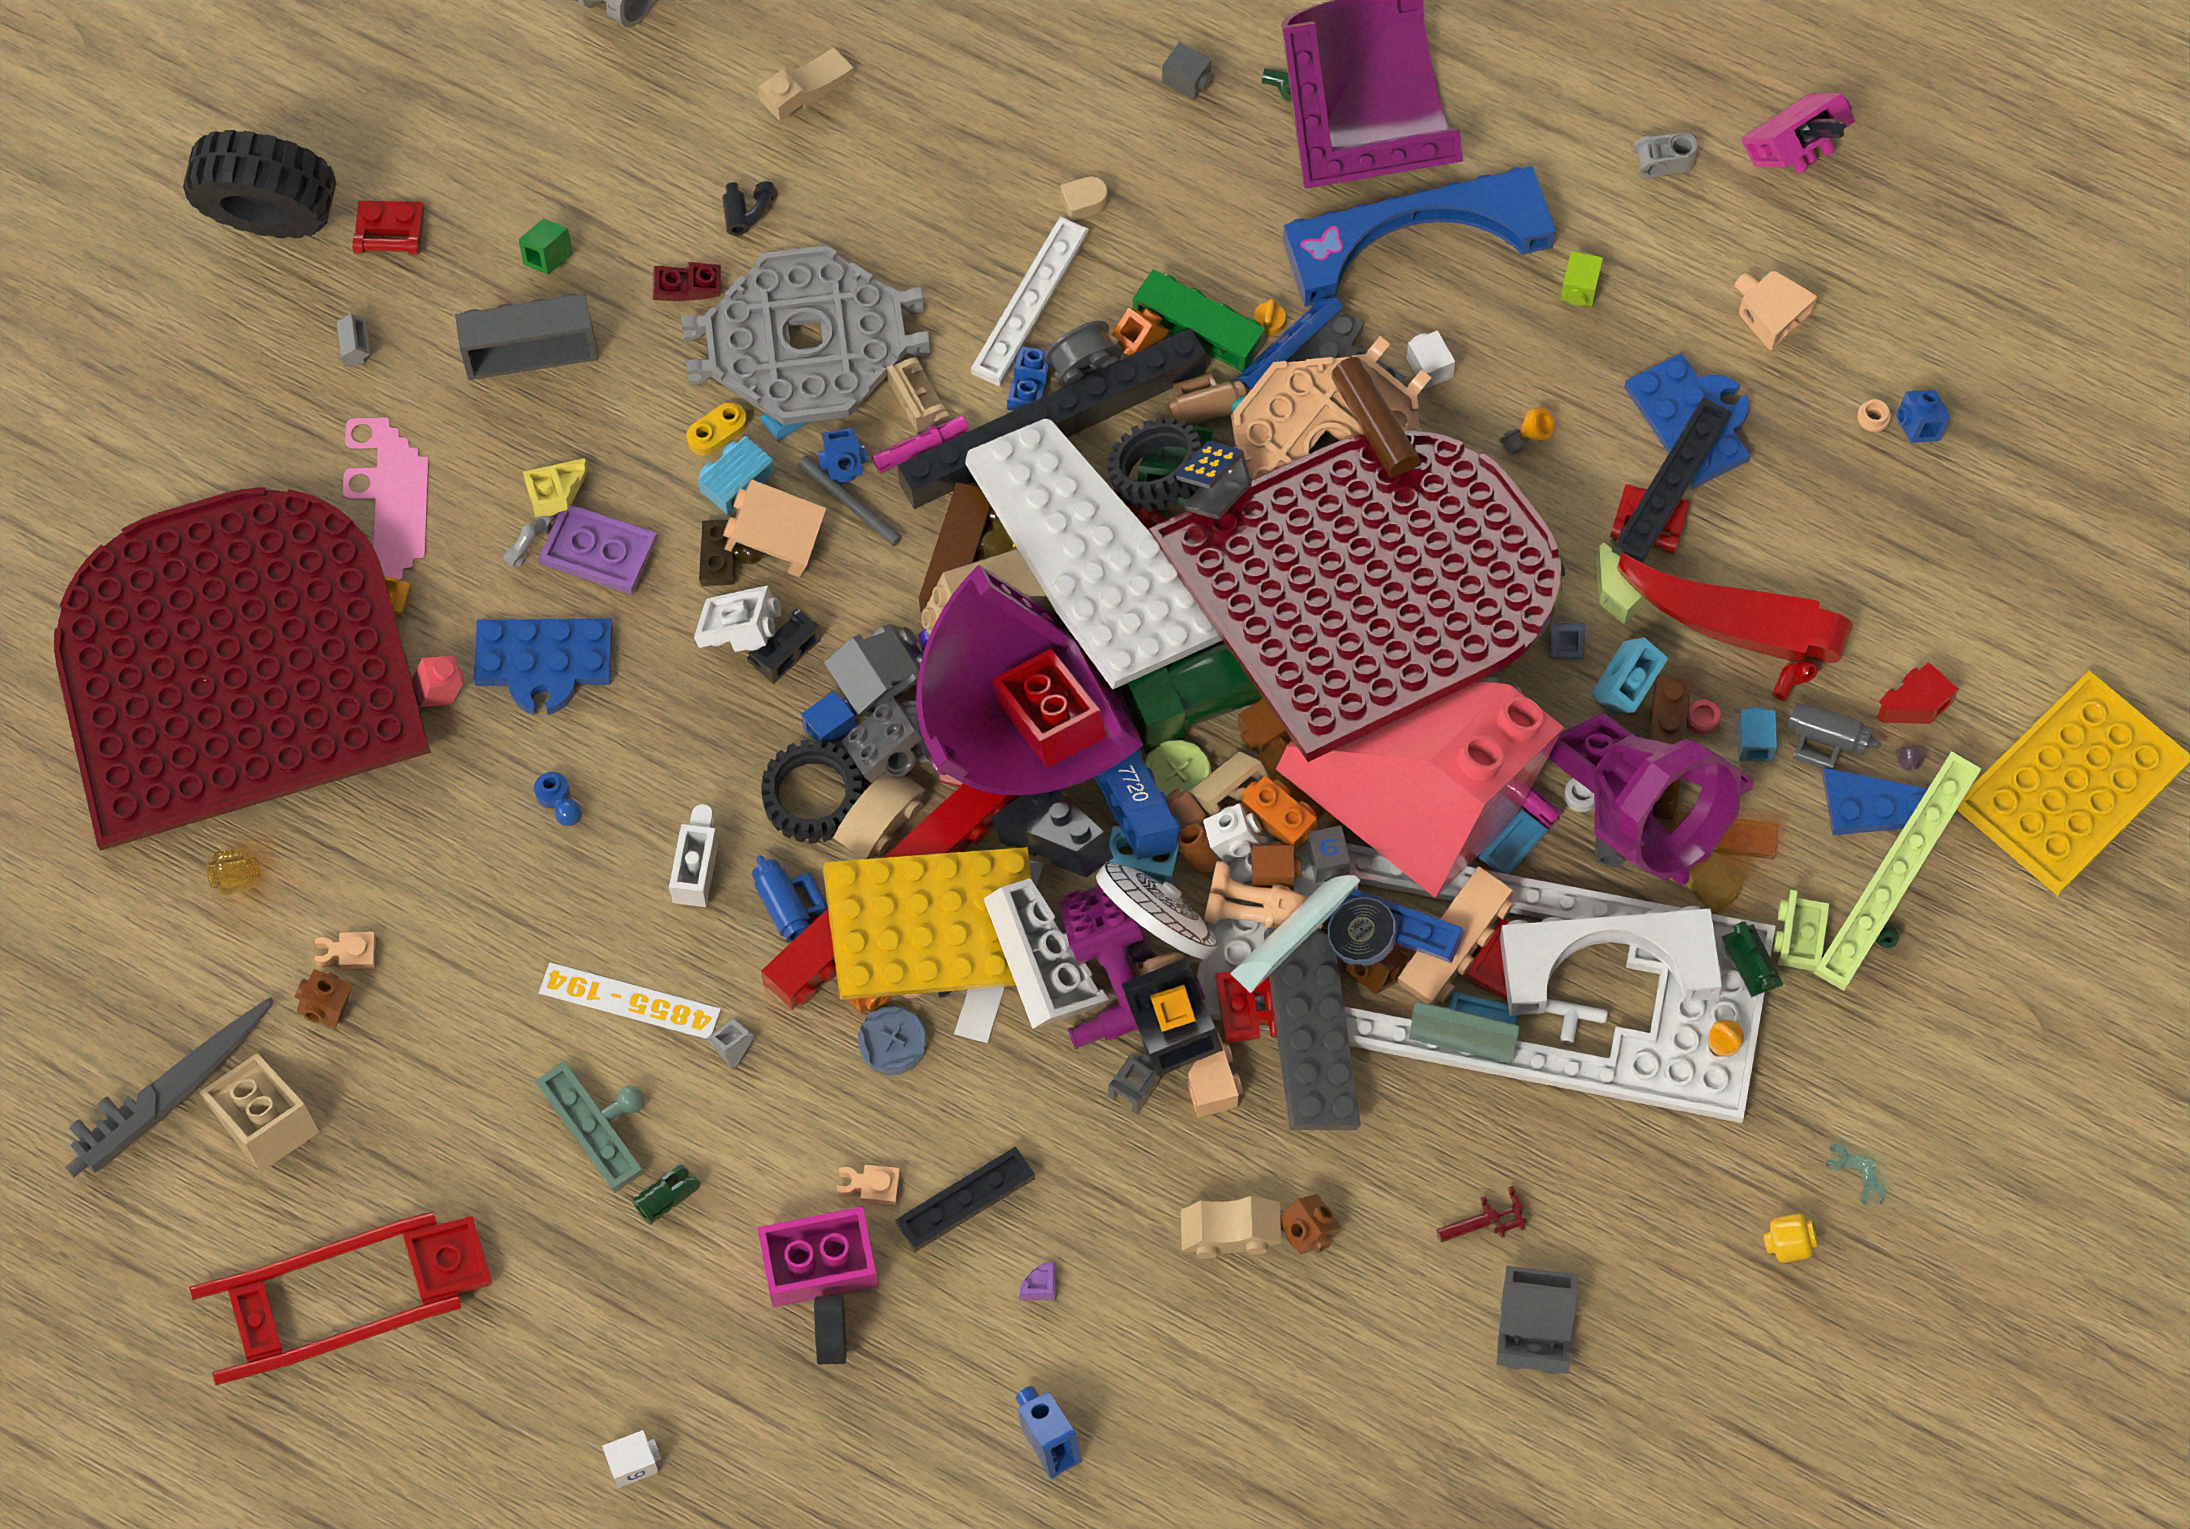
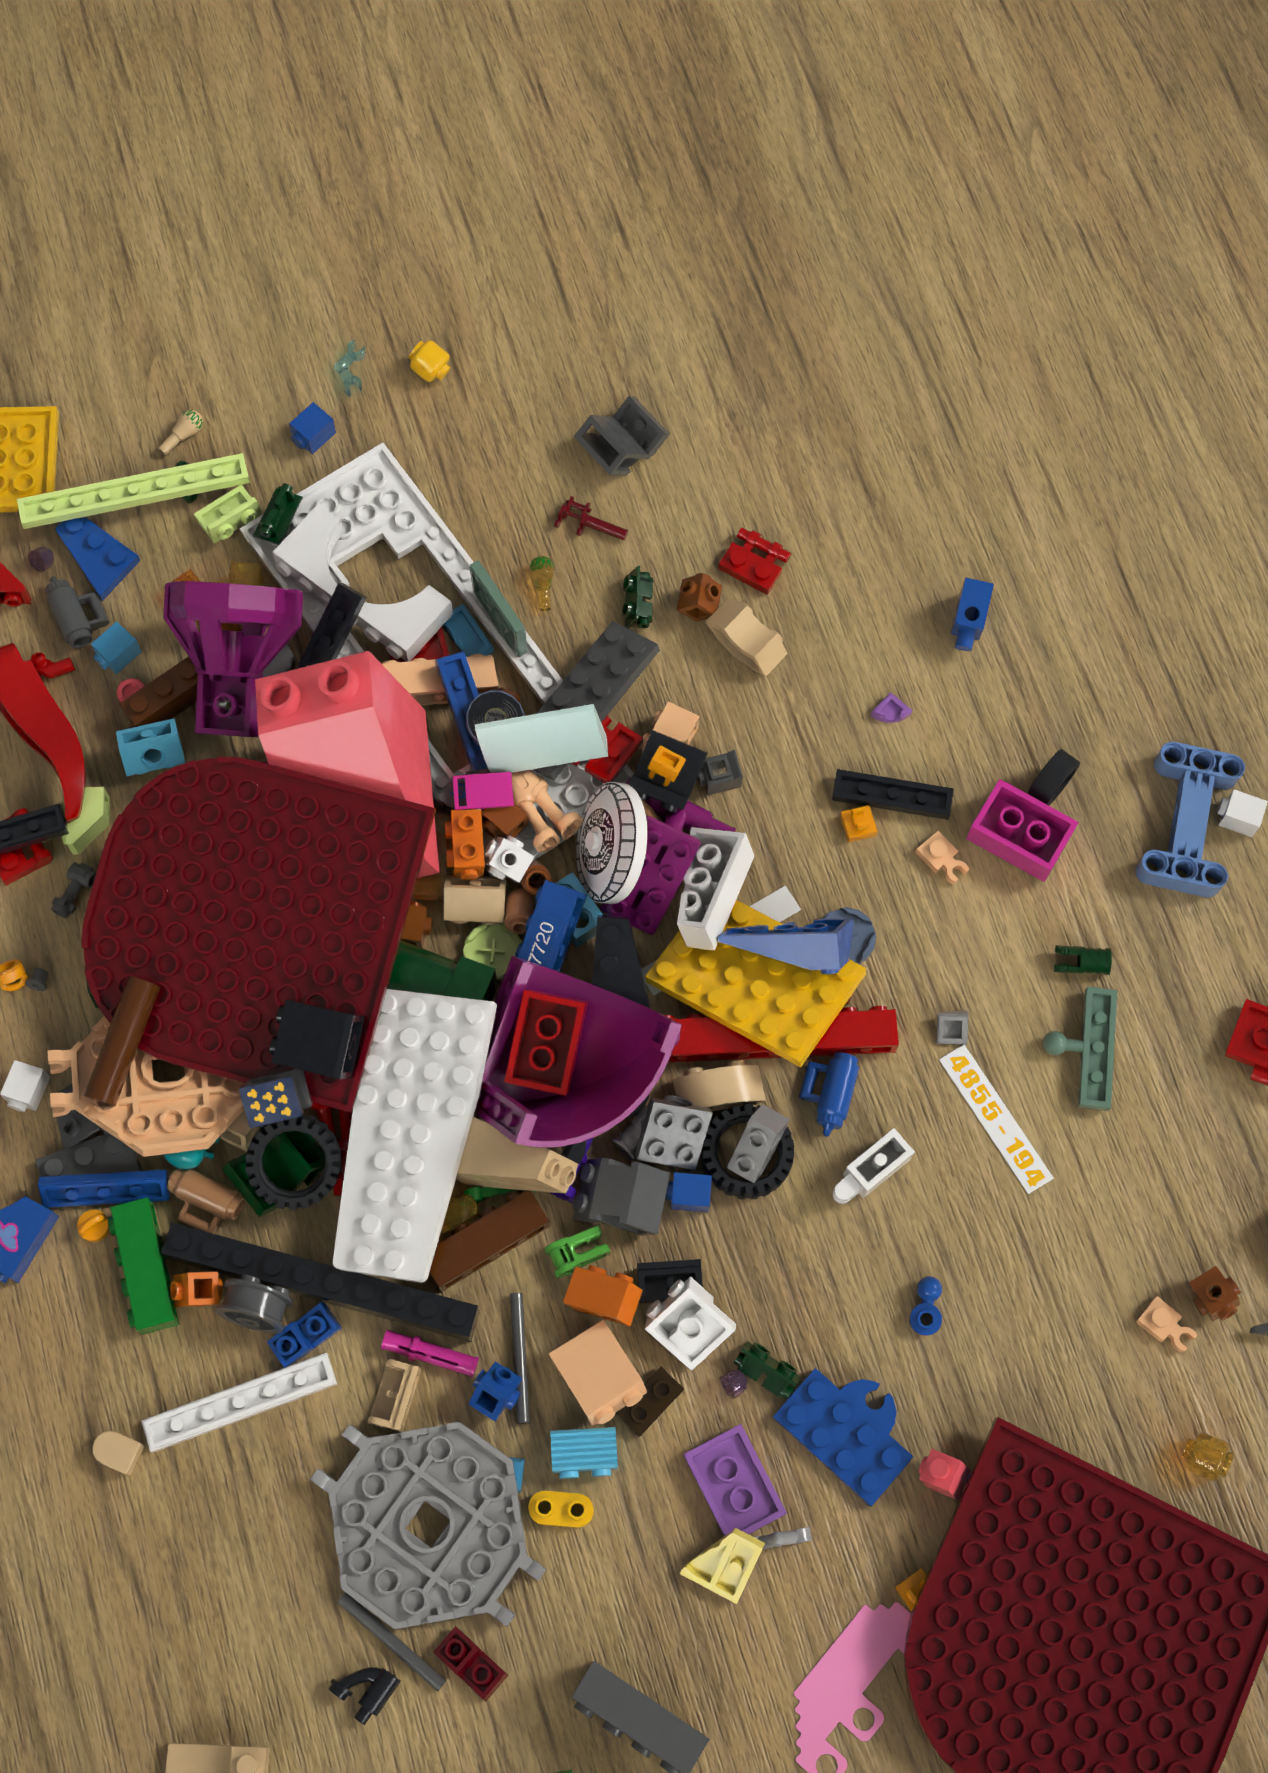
camera: 140 degrees left, 5 degrees up
(638, 652) = (778, 1373): none -> dark green hinge
(663, 617) = (734, 1383): none -> hinge
(674, 1410) = (1190, 819): none -> medium blue beam
(749, 250) = (391, 1641): none -> dark grey bar
(805, 789) = (758, 1143): none -> light grey brick
(823, 582) = (603, 1295): none -> orange brick
(878, 593) = (571, 1259): none -> bright green piece
(913, 962) = (813, 947): none -> wedge
(972, 1149) = (858, 823): none -> light orange tile
(1219, 534) = (317, 1039): none -> black slope
(1295, 1308) = (751, 568): none -> red plate
(1305, 860) = (485, 790): none -> dark pink piece
(1376, 1189) = (637, 587): none -> dark green hinge
(1474, 1128) = (542, 572): none -> clear yellow piece
(1568, 540) = (81, 876): none -> dark grey bar
(1571, 1014) = (408, 589): white piece -> none
(1581, 881) = (333, 626): none -> black plate
(1725, 1038) = (343, 488): light orange tile -> none
(1820, 1076) = (312, 428): none -> blue brick
(1932, 982) = (188, 424): none -> tan piece

